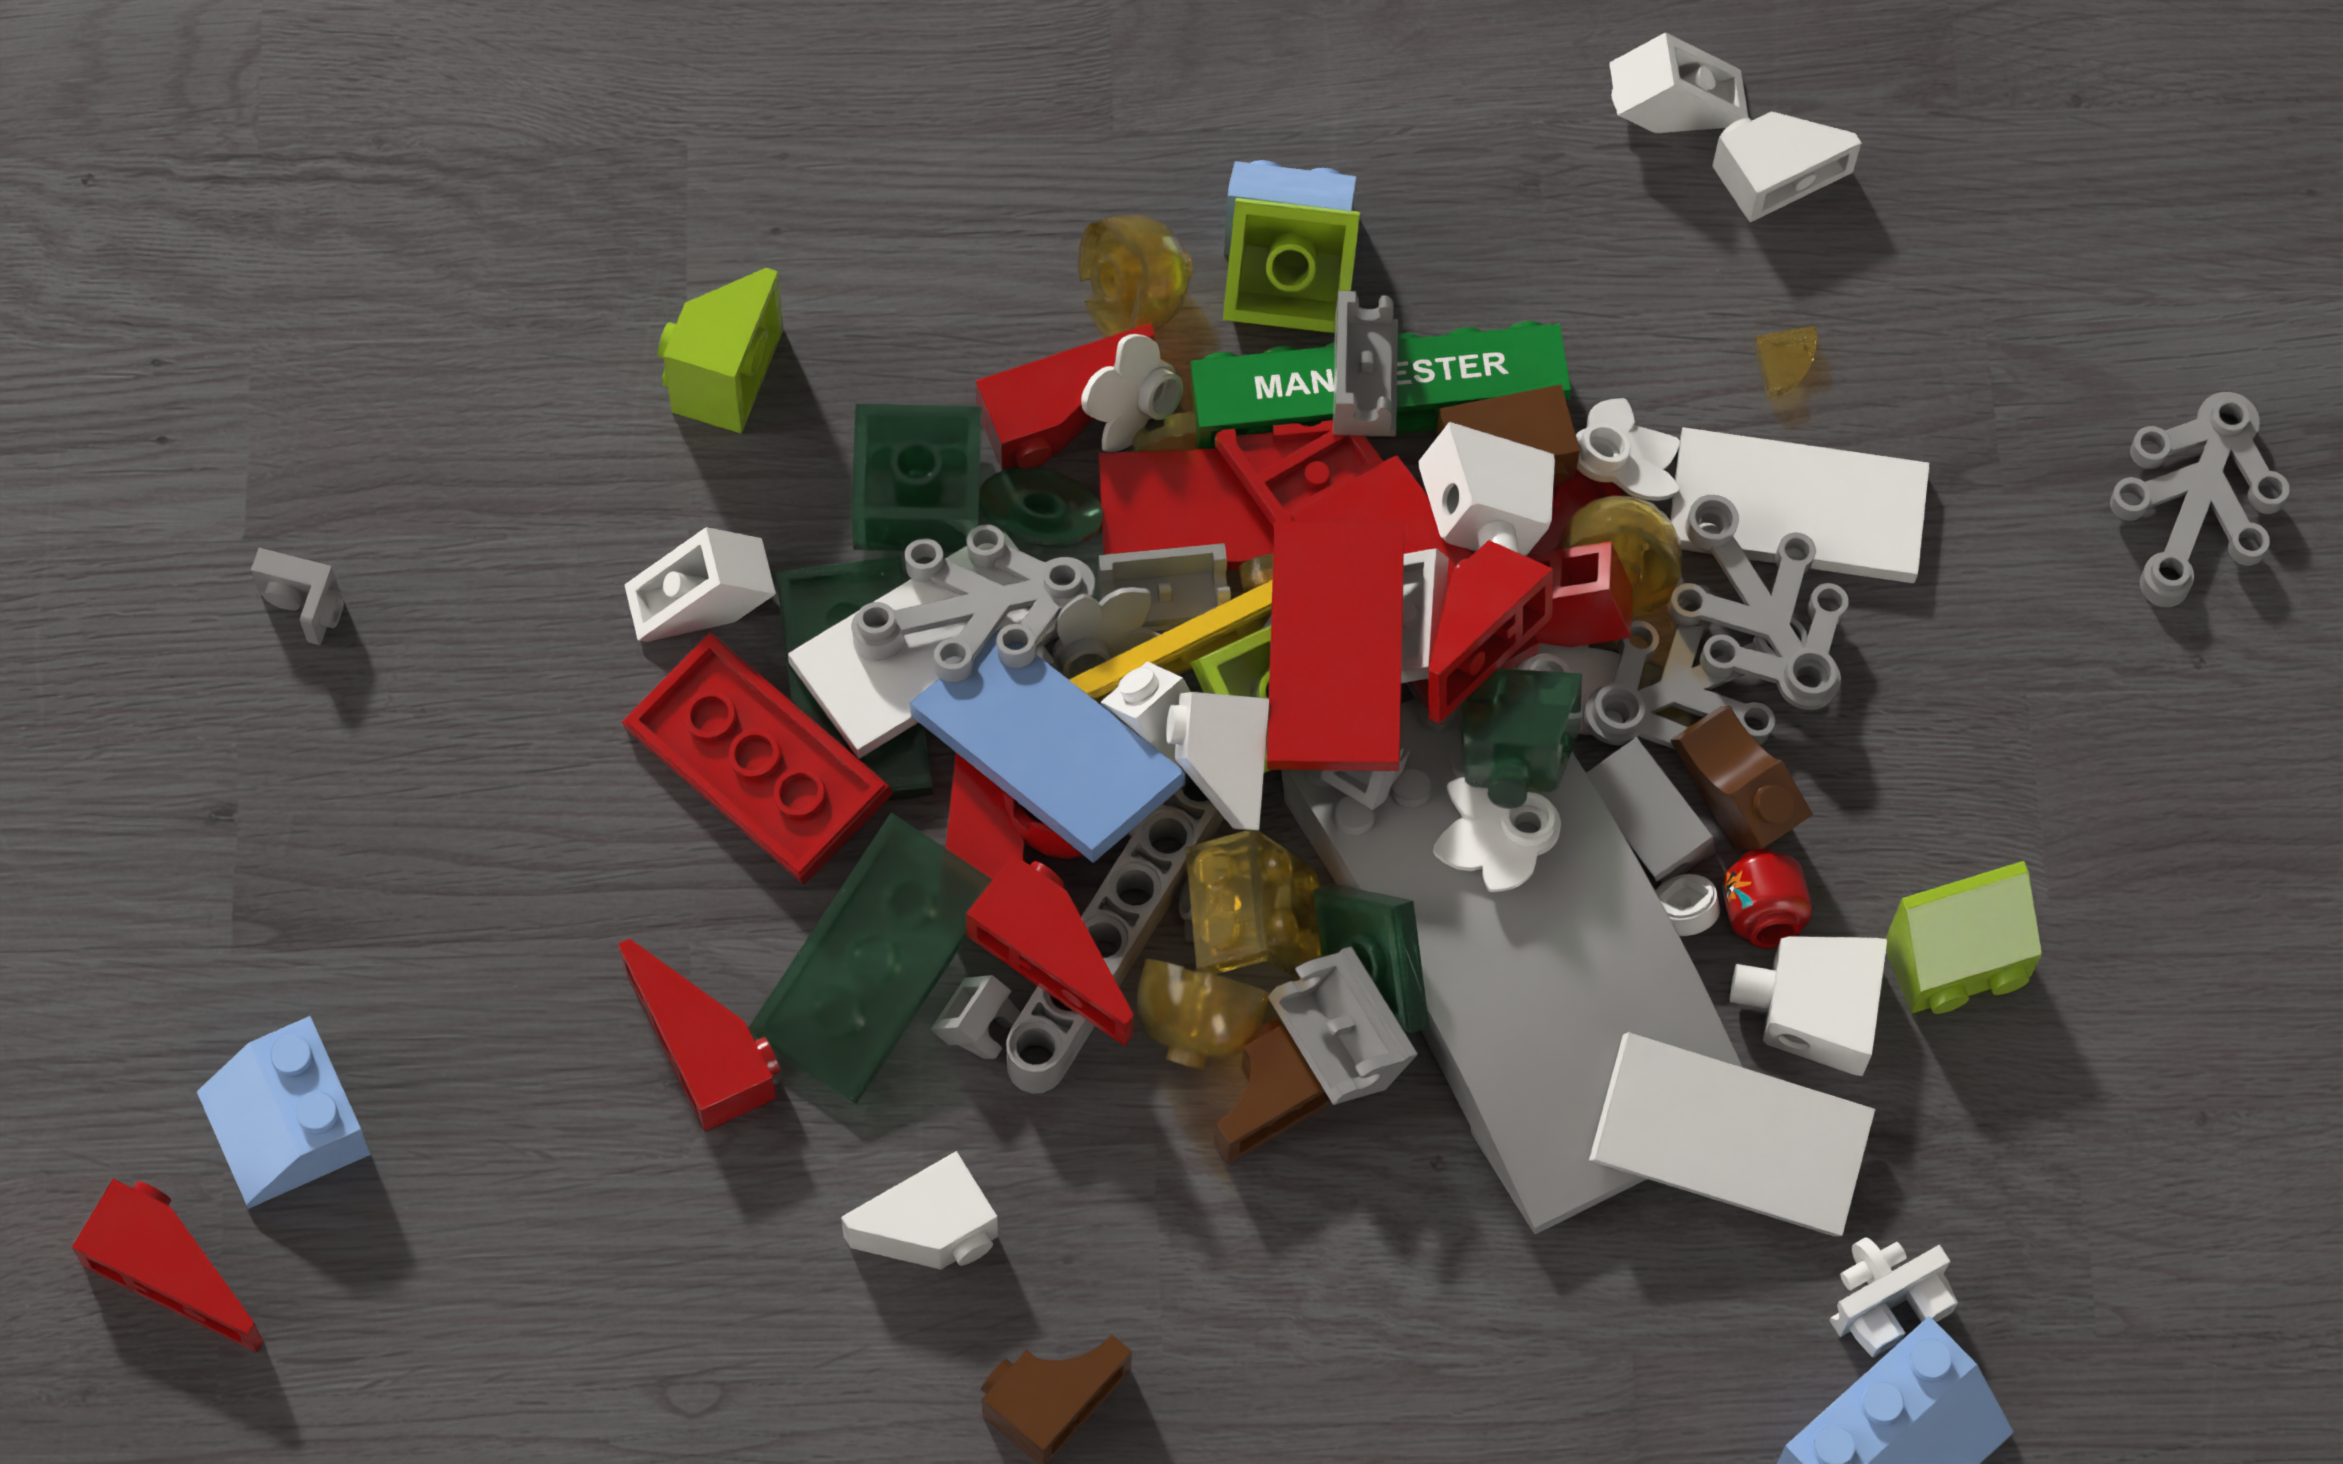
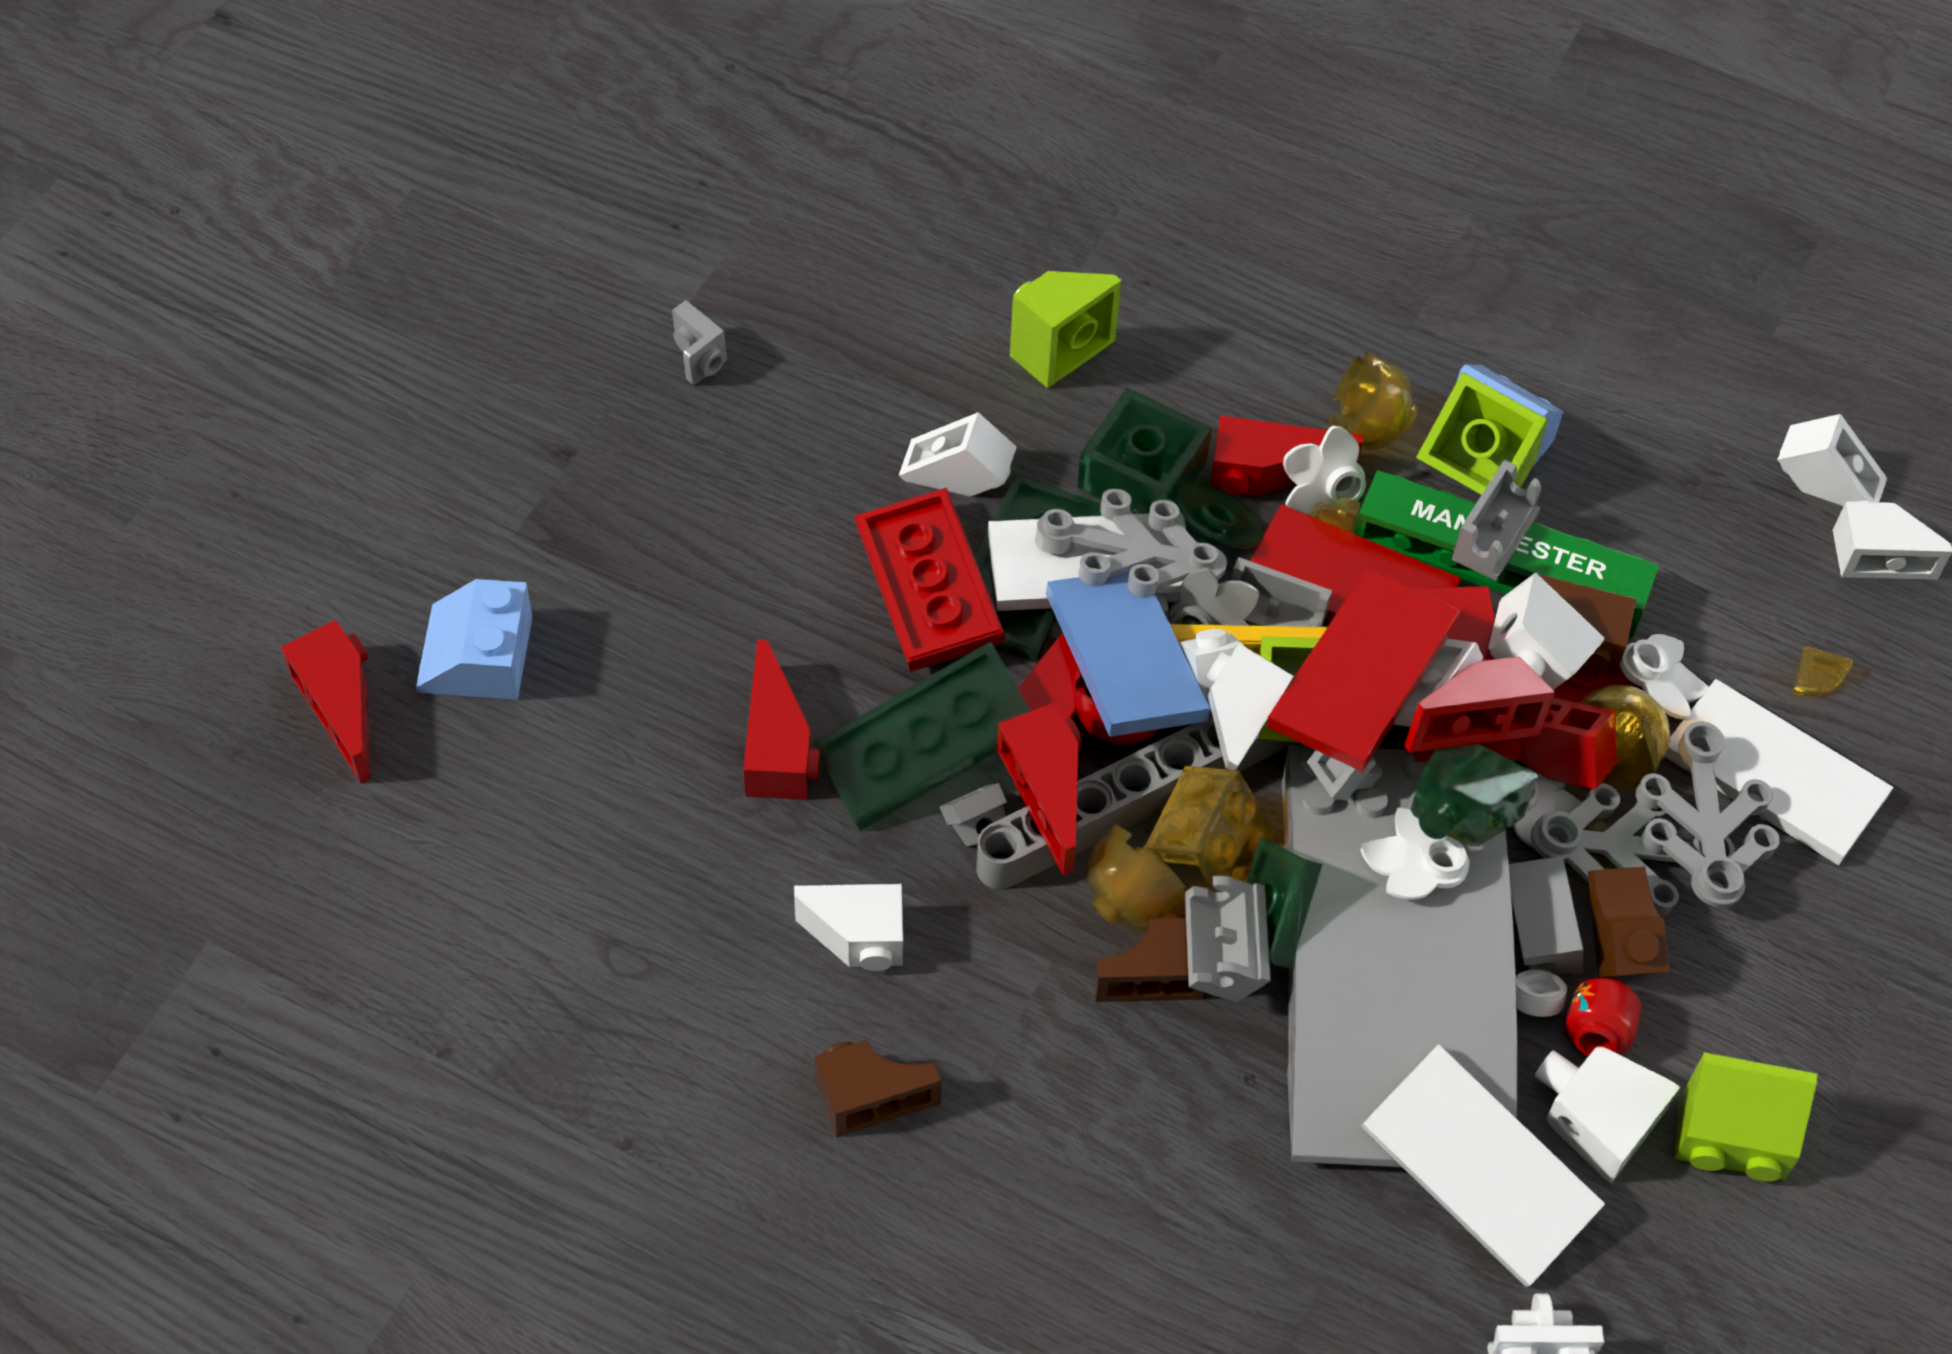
camera: 30 degrees right, 10 degrees down
(1294, 464) = (1414, 562): red wing -> none

